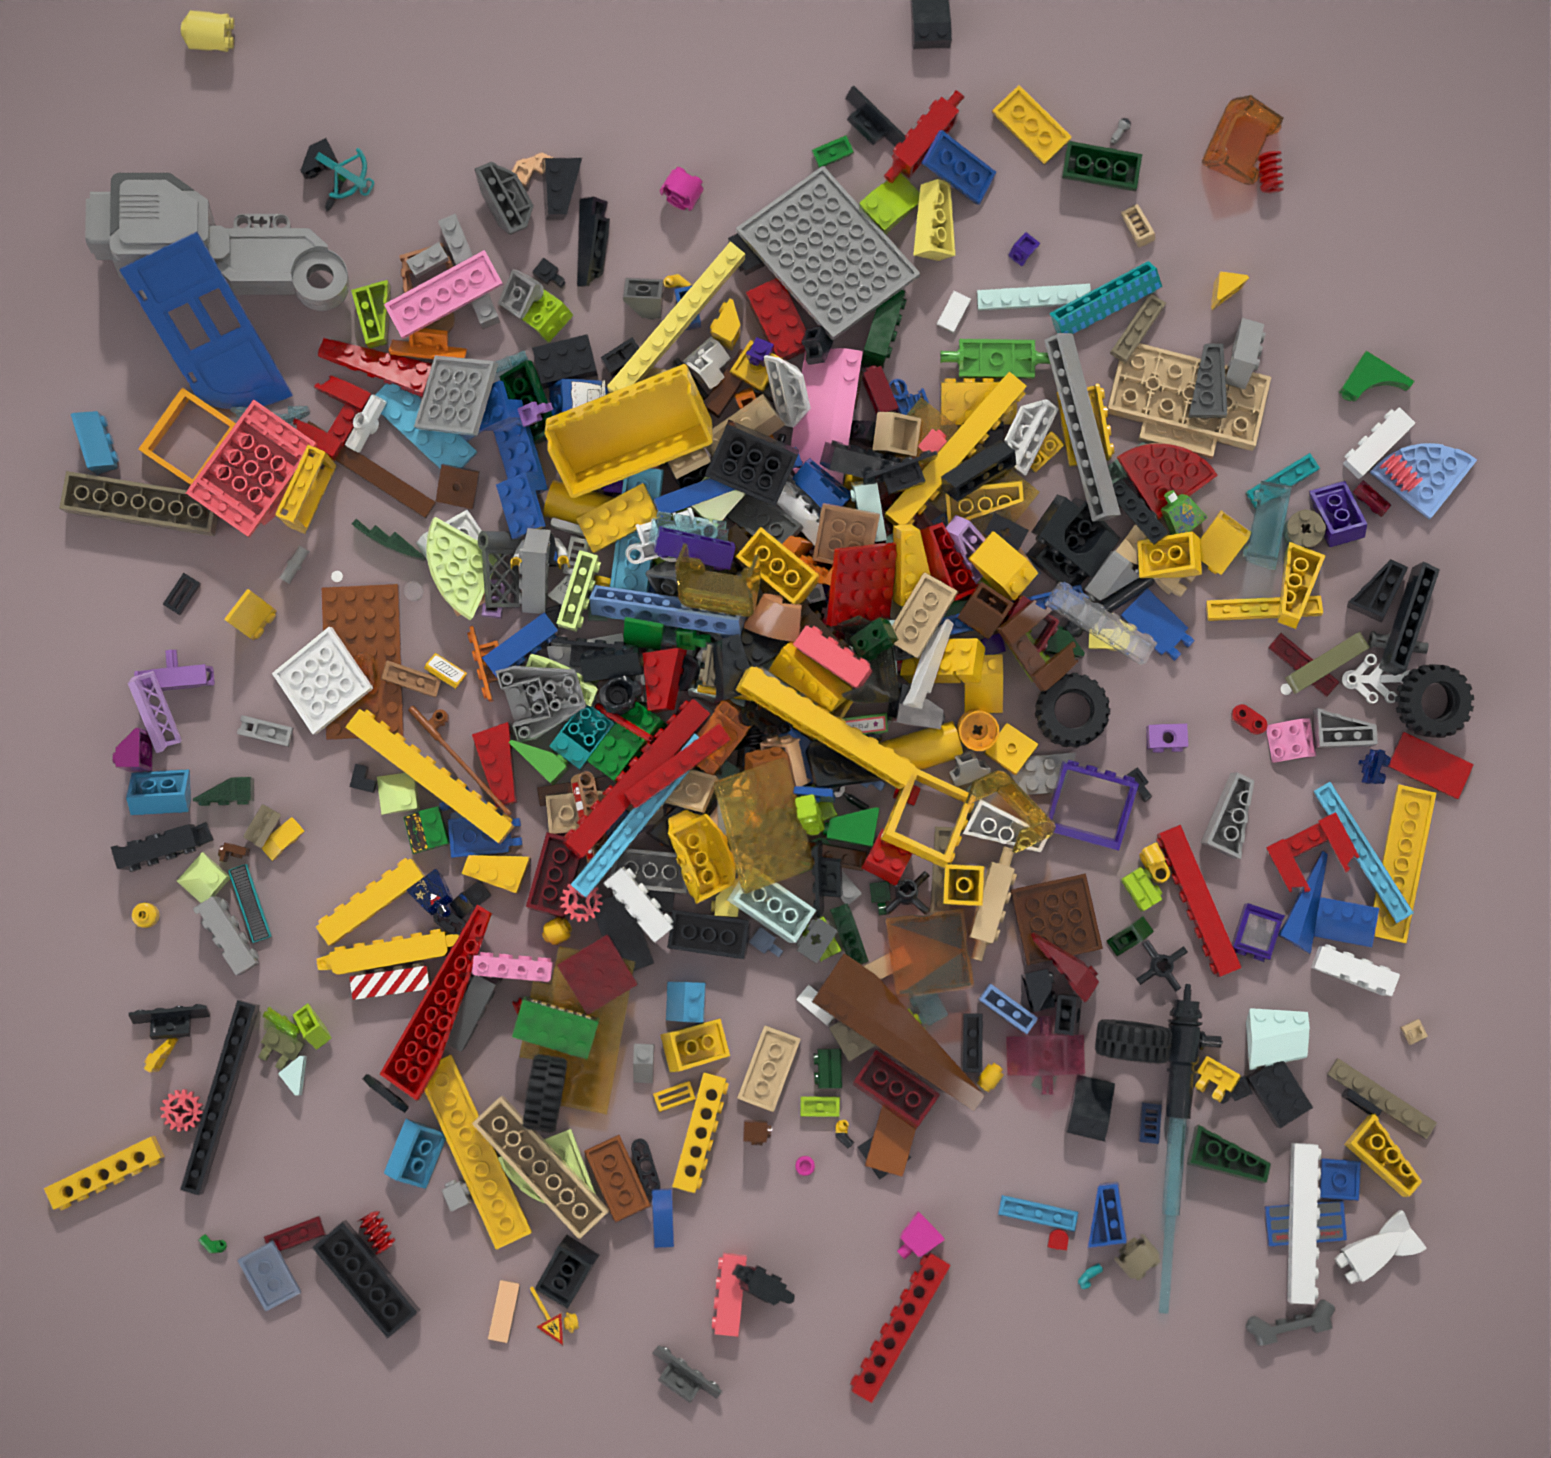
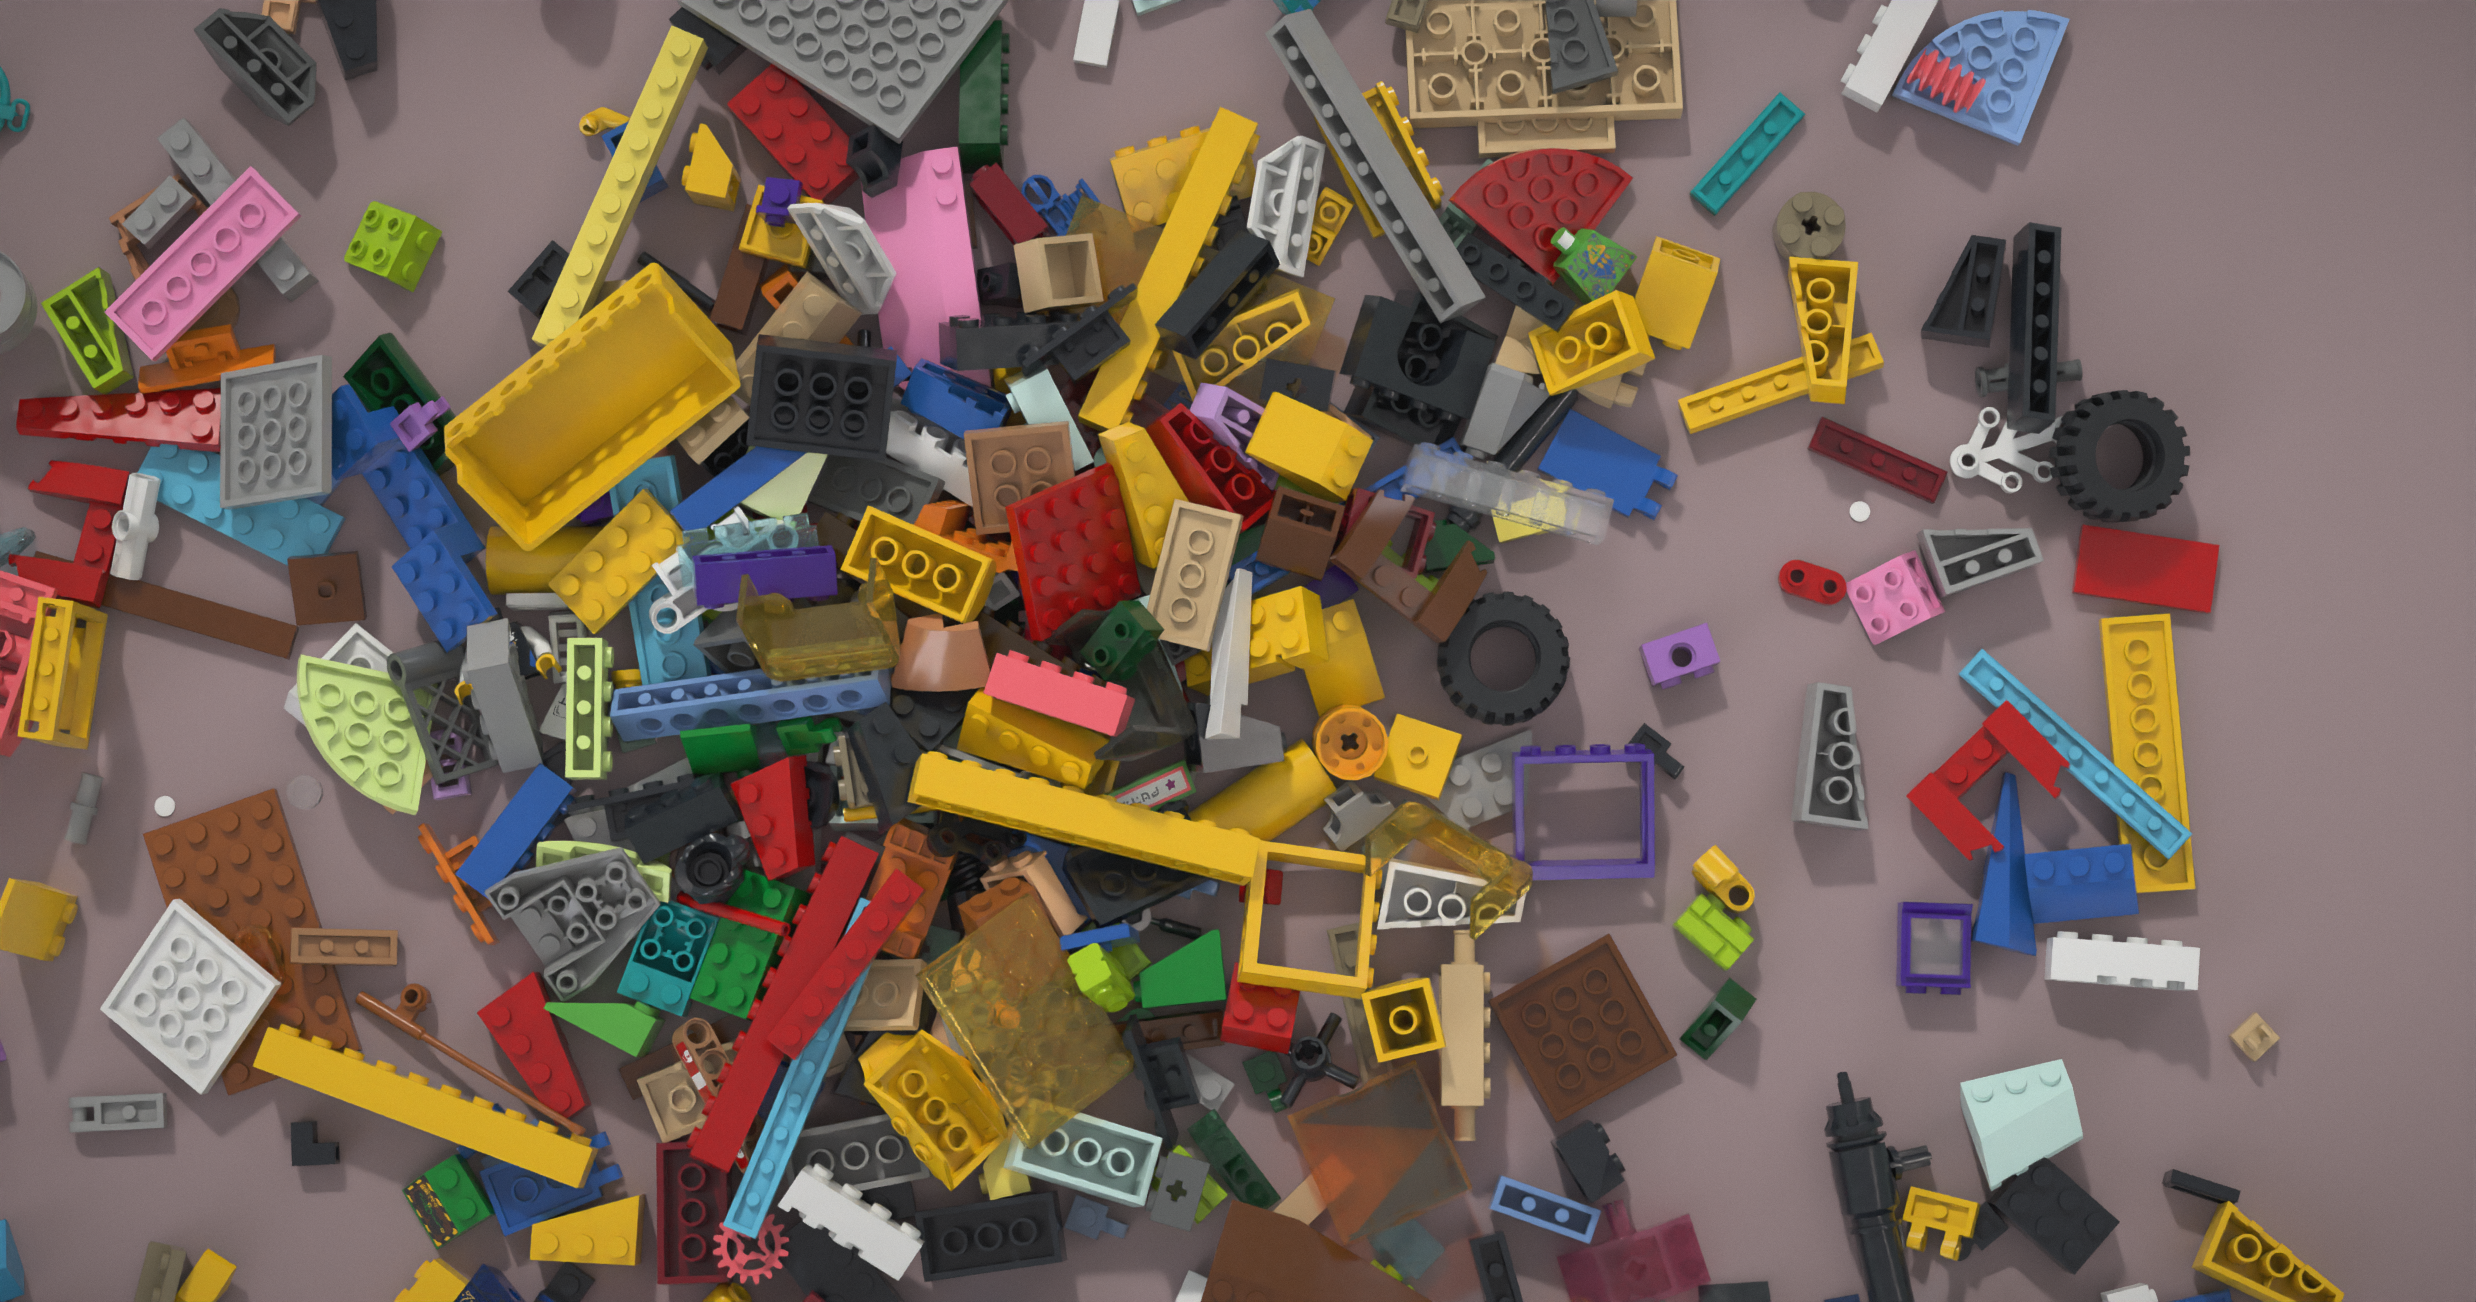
camera: 10 degrees left, 0 degrees up
(231, 790) = (90, 1232): clear green slope -> none
(394, 542) = (245, 719): clear green slope -> none
(397, 793) = (380, 1152): yellowish green slope -> none
(445, 670) = (400, 914): tile -> none
(511, 361) = (355, 344): clear light blue axle -> none
(520, 293) = (337, 221): light grey slope -> none
(548, 272) = (376, 170): black plate -> none
(565, 360) = (450, 316): black brick -> none
(574, 392) = (480, 366): slope -> none
(591, 239) = (435, 91): black wedge -> none
(644, 296) = (554, 163): dark grey slope -> none
(706, 361) = (694, 245): white brick -> none
(933, 441) = (1125, 266): coral brick -> none
(995, 358) = (1192, 90): bright green plate -> none
(1068, 1014) = (1651, 1187): black brick -> none
(1076, 972) = (1649, 1114): dark red wedge -> none
(1133, 1041) = (1776, 1202): black tyre -> none
(1161, 958) = (1801, 1052): black bar -> none
(1199, 901) = (1818, 923): red brick -> none
(1267, 524) = (1744, 238): clear light blue windscreen -> none
(1327, 662) = (1916, 445): olive beam -> none
(1340, 513) = (1860, 182): dark purple slope -> none
(1372, 498) = (1909, 139): dark red plate -> none
(1372, 766) = (2046, 600): clear blue hips -> none
(1382, 1098) = (2233, 1168): dark tan plate -> none

